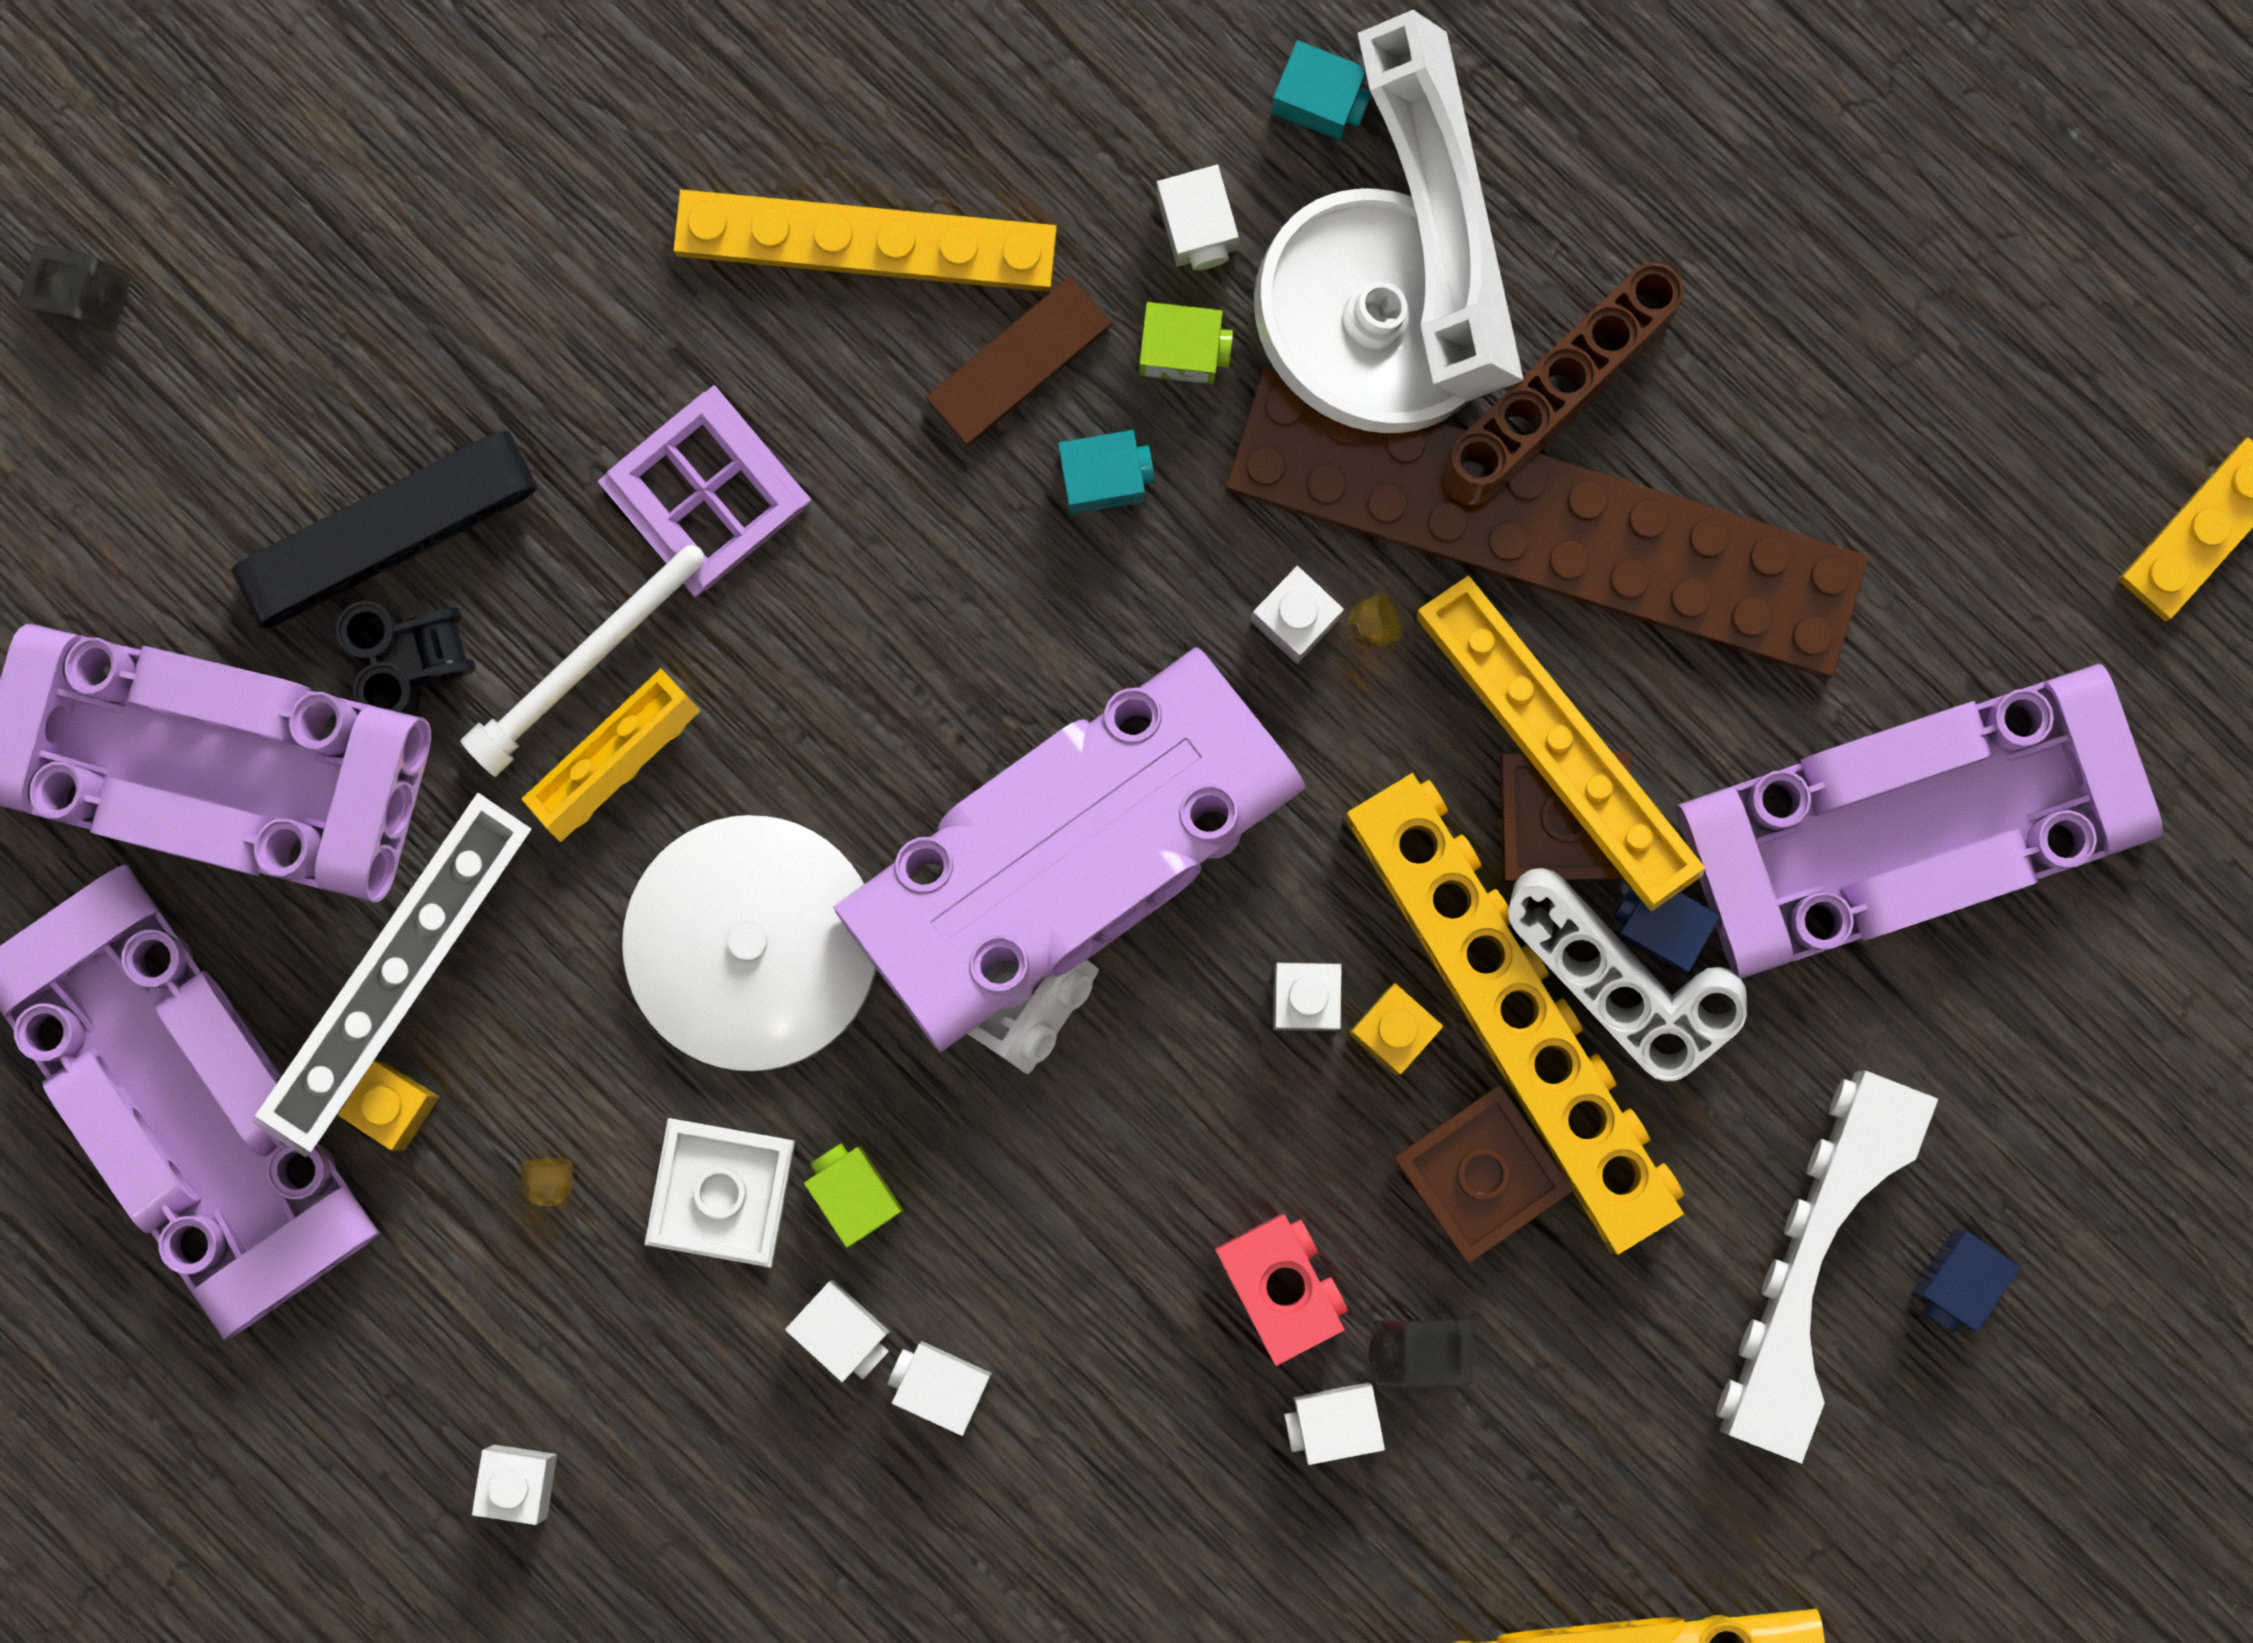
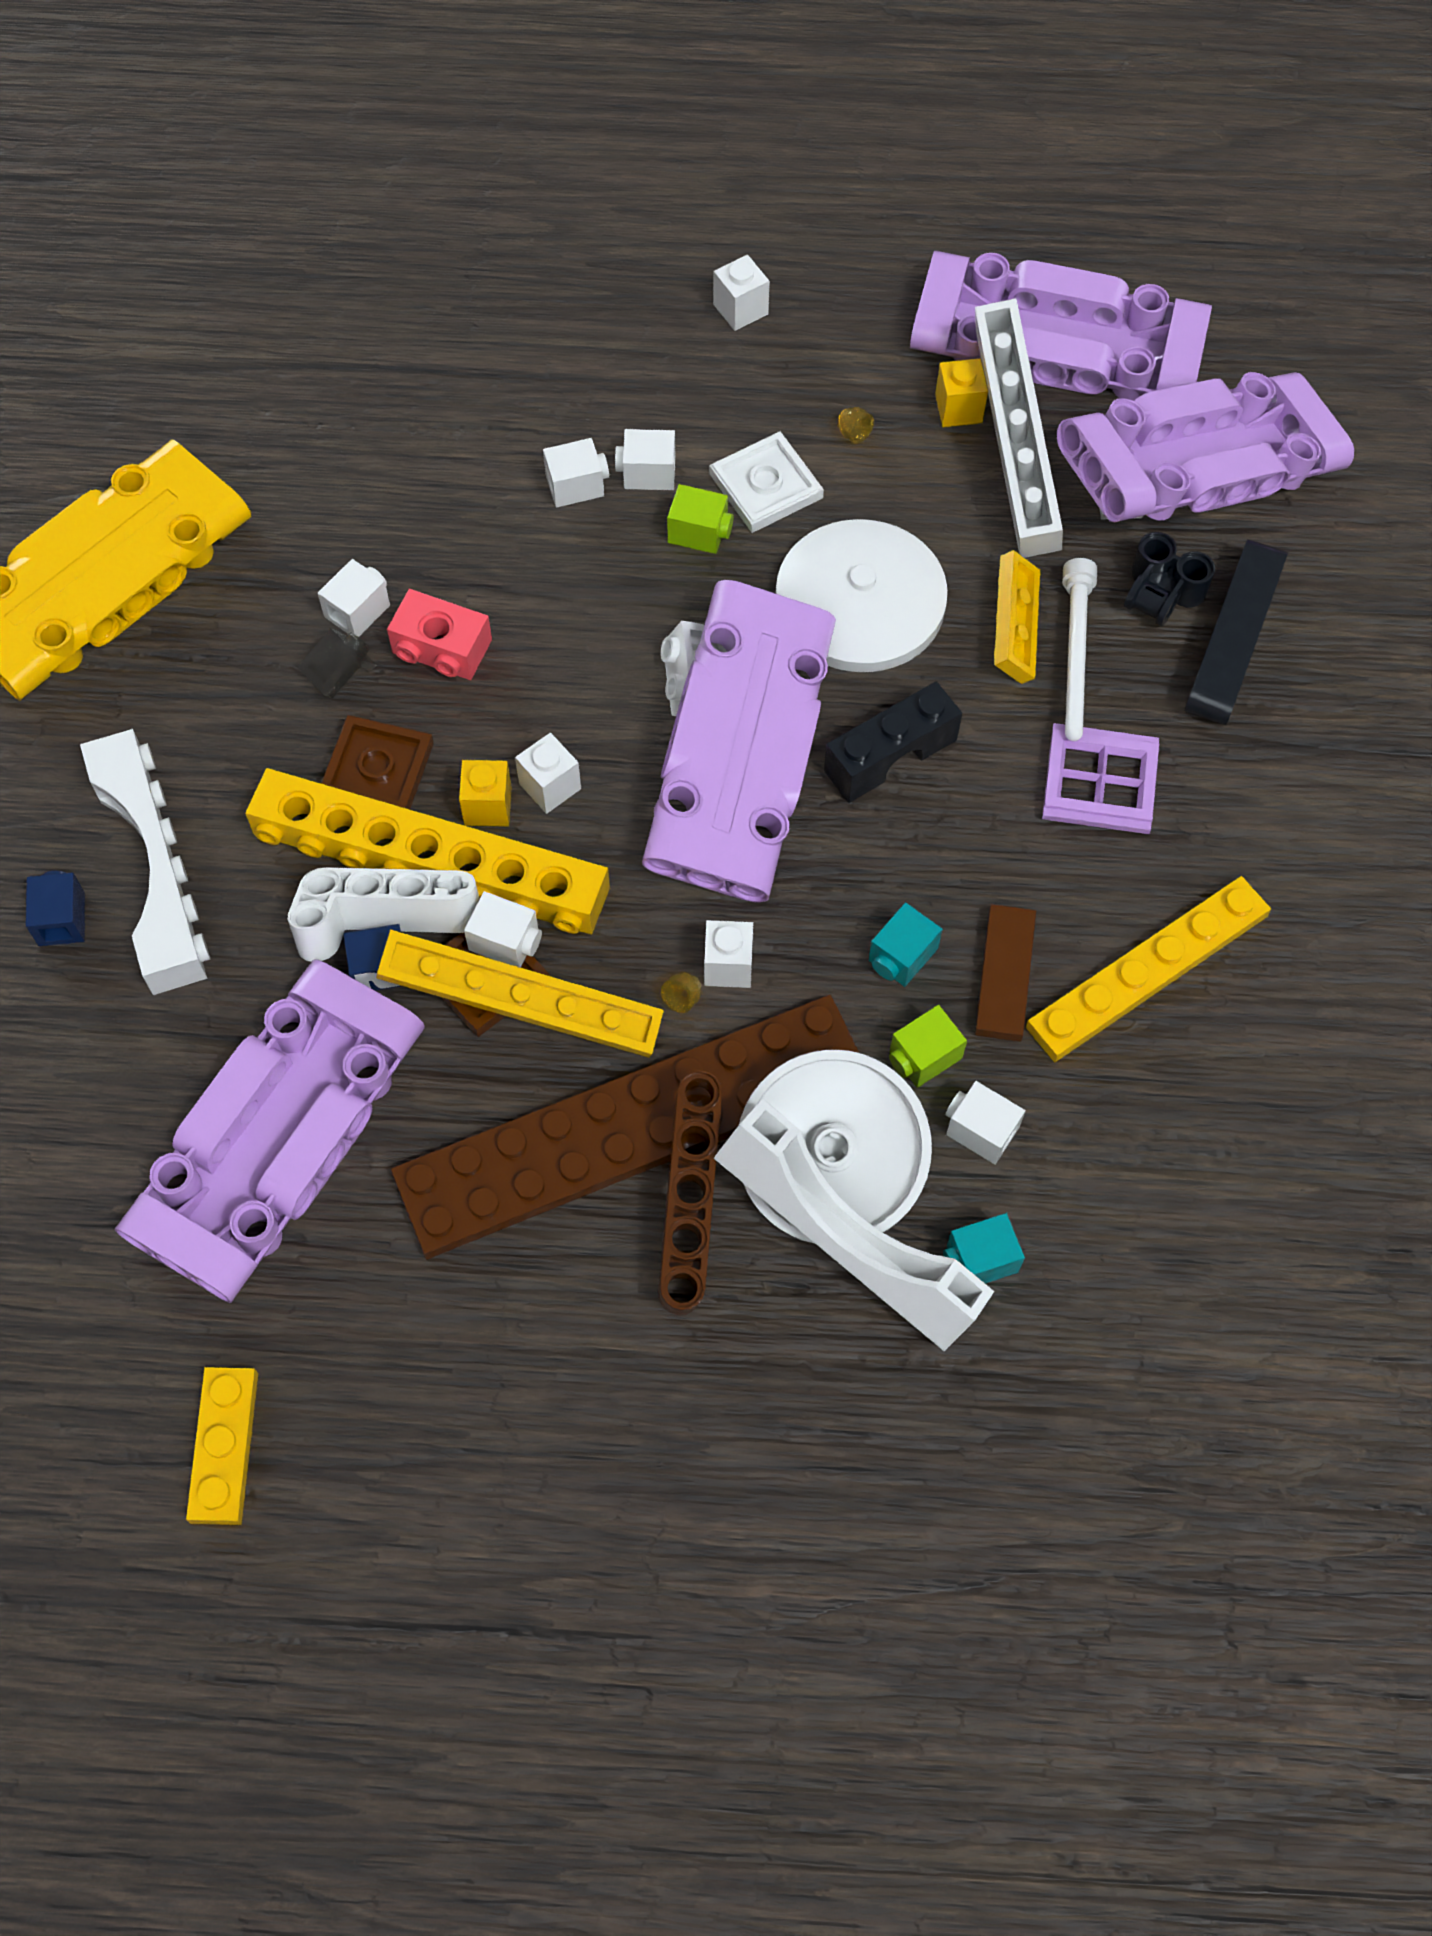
camera: 140 degrees right, 20 degrees down
(898, 713) = (865, 754): none -> black arch
(1520, 825) = (502, 930): none -> white brick

